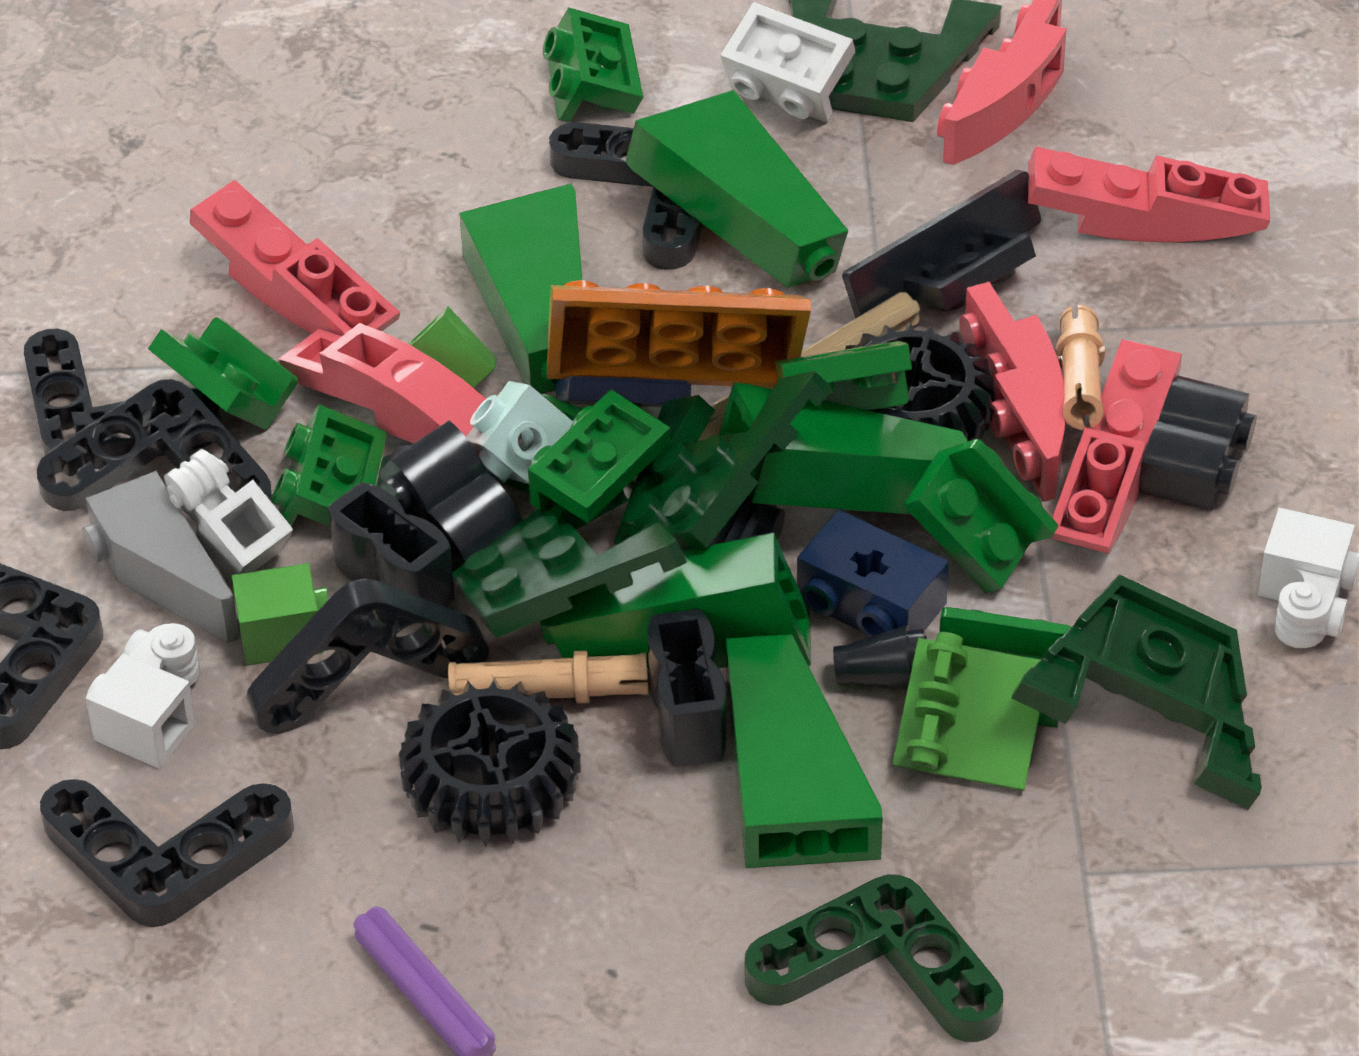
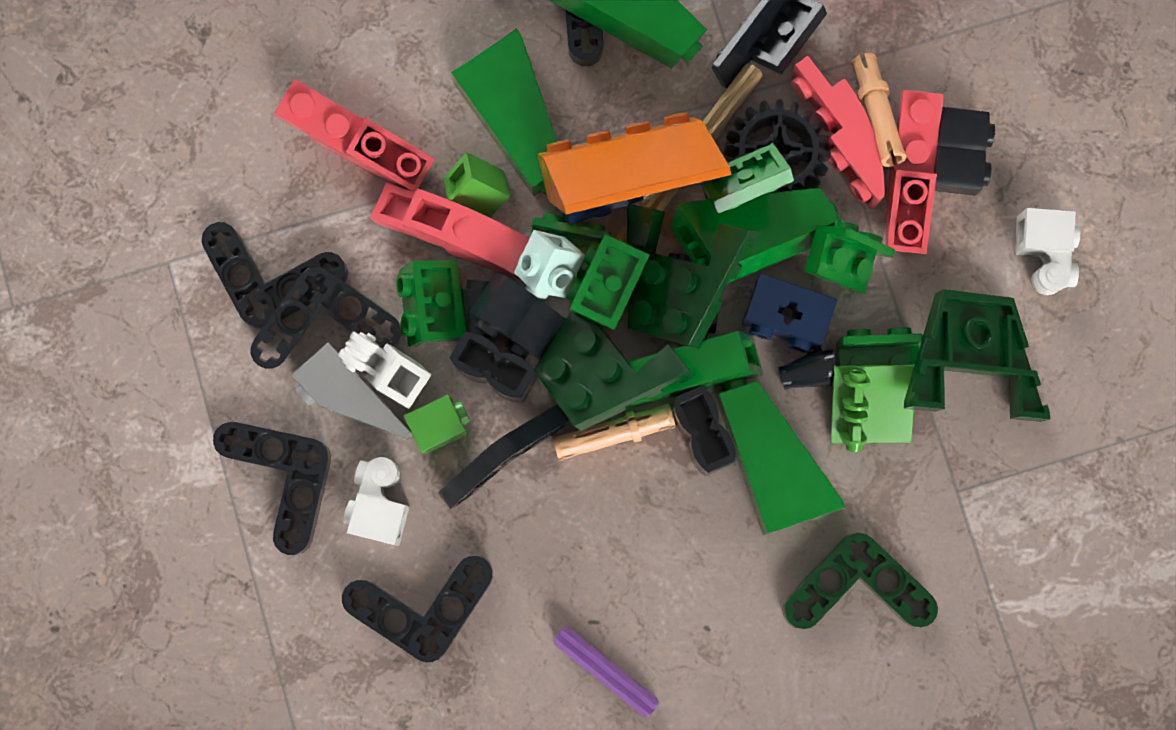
camera: 15 degrees left, 35 degrees up
(229, 371) = (340, 237): green bracket -> none
(460, 786) = (580, 476): black gear -> none

